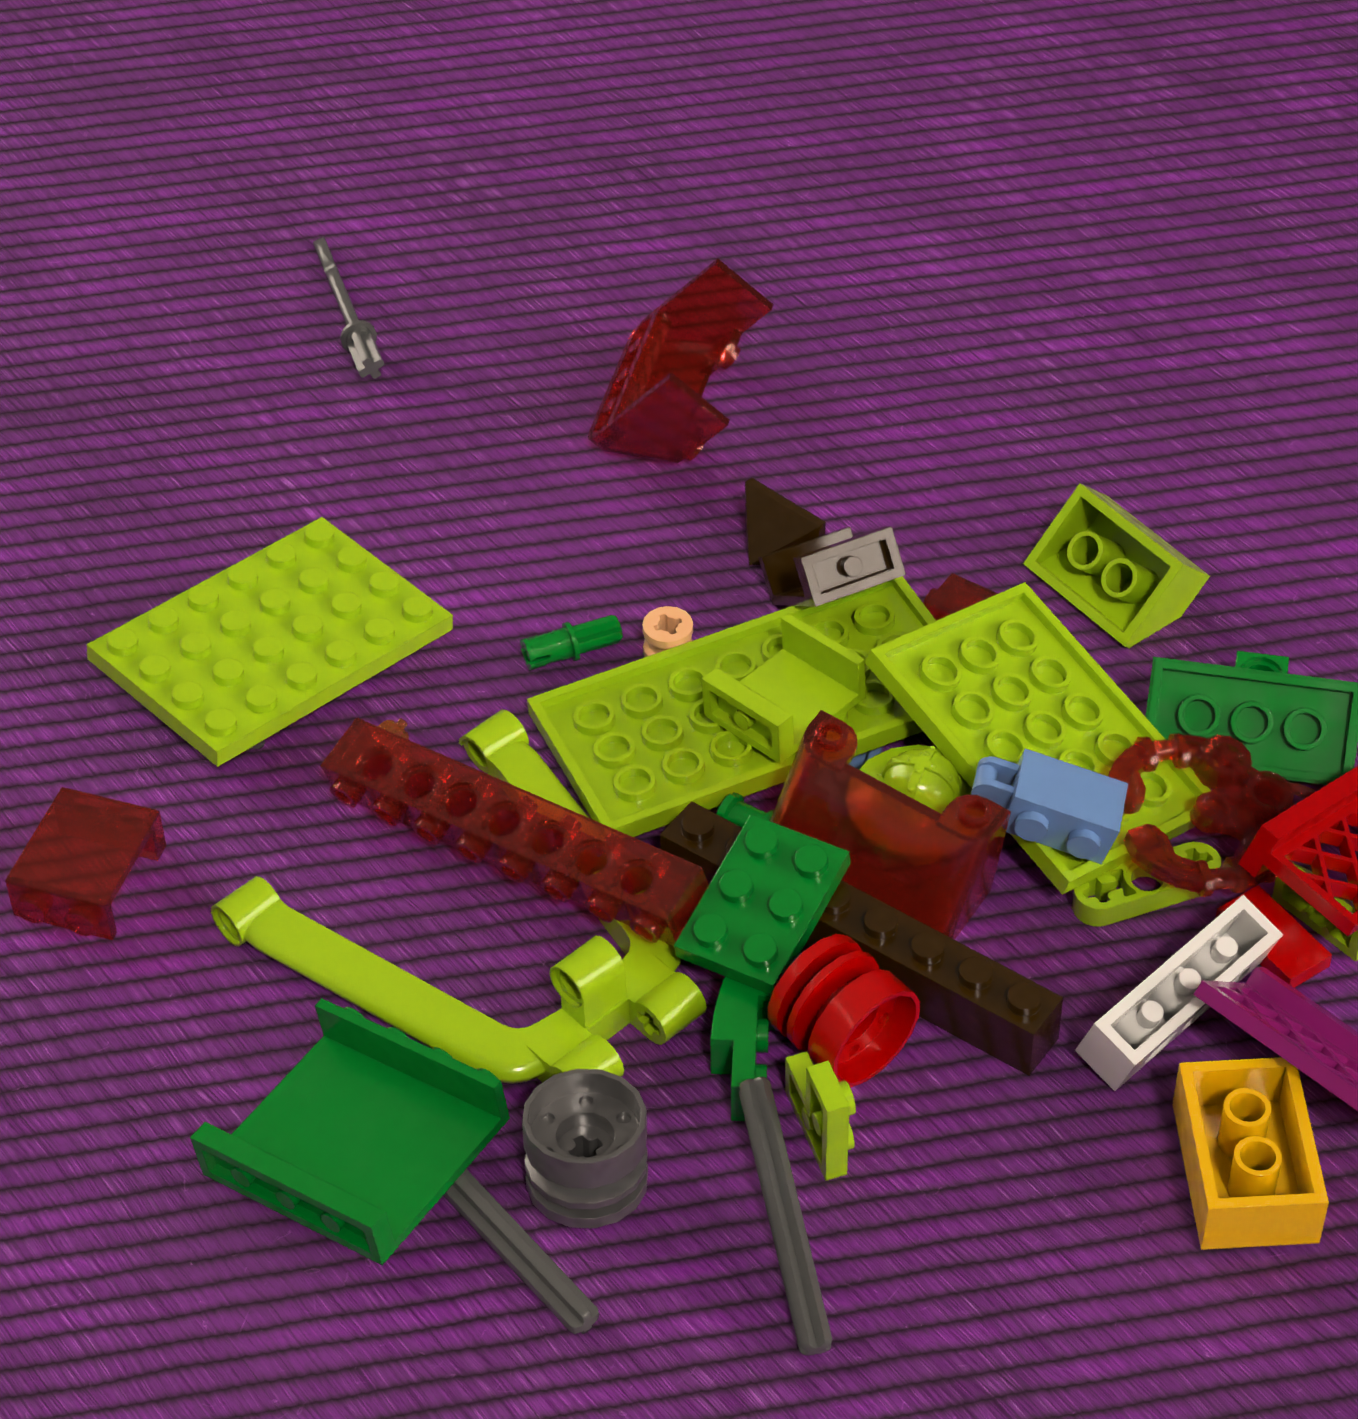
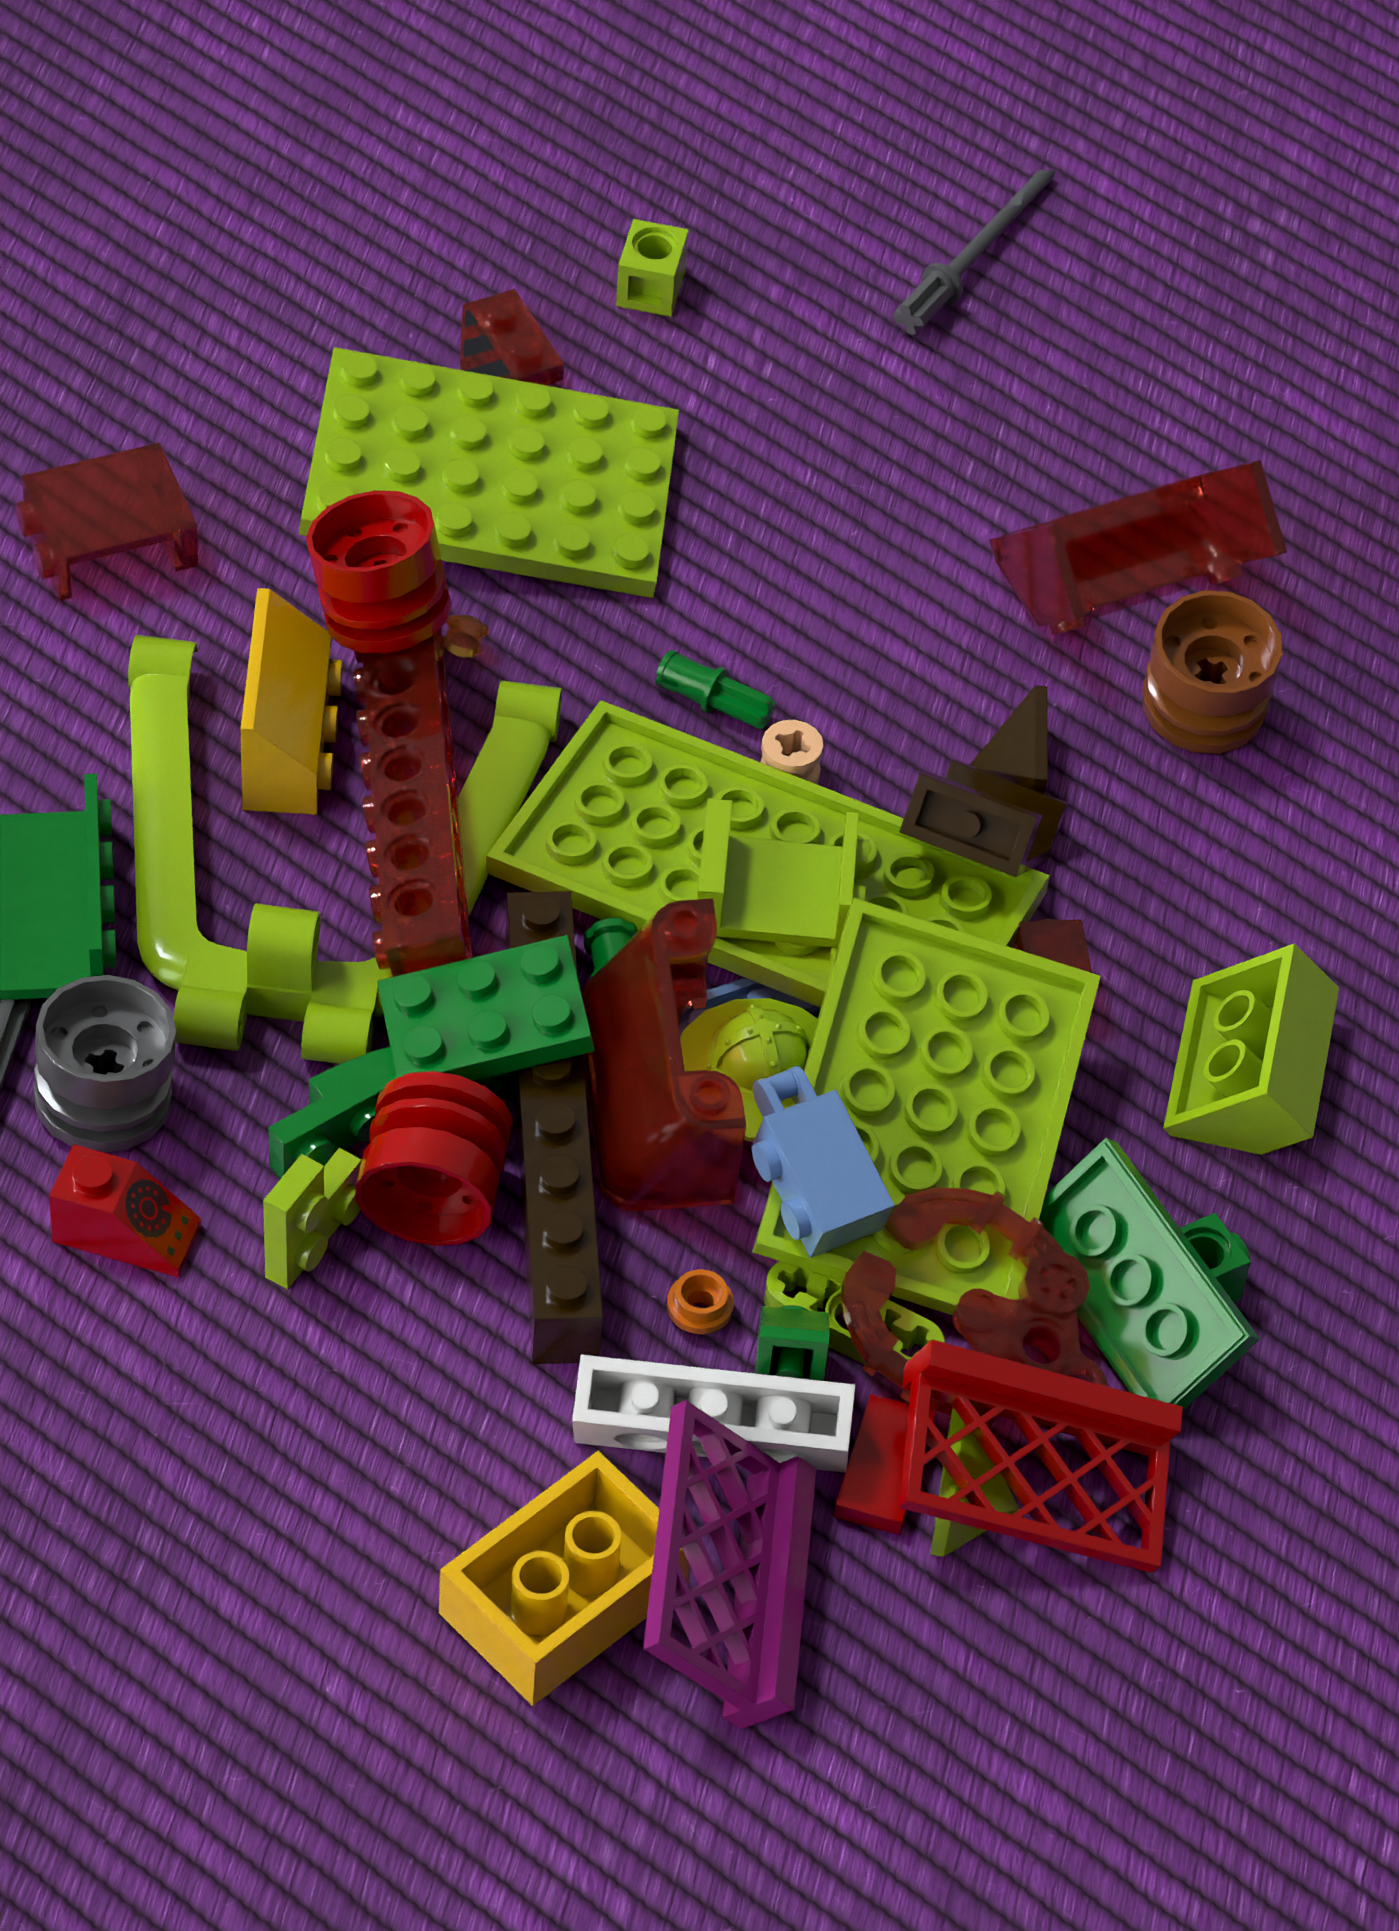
camera: 45 degrees right, 5 degrees up
(160, 567) = (507, 342): none -> clear red wing
(189, 456) = (652, 267): none -> lime brick
(341, 723) = (379, 571): none -> red wheel
(366, 867) = (287, 709): none -> yellow slope
(706, 1226) = (120, 1212): none -> red slope
(785, 1217) = (171, 1258): dark grey axle -> none
(816, 399) = (1211, 671): none -> dark orange wheel
(1062, 941) = (705, 1288): none -> orange plate
(1162, 919) = (792, 1342): none -> green slope

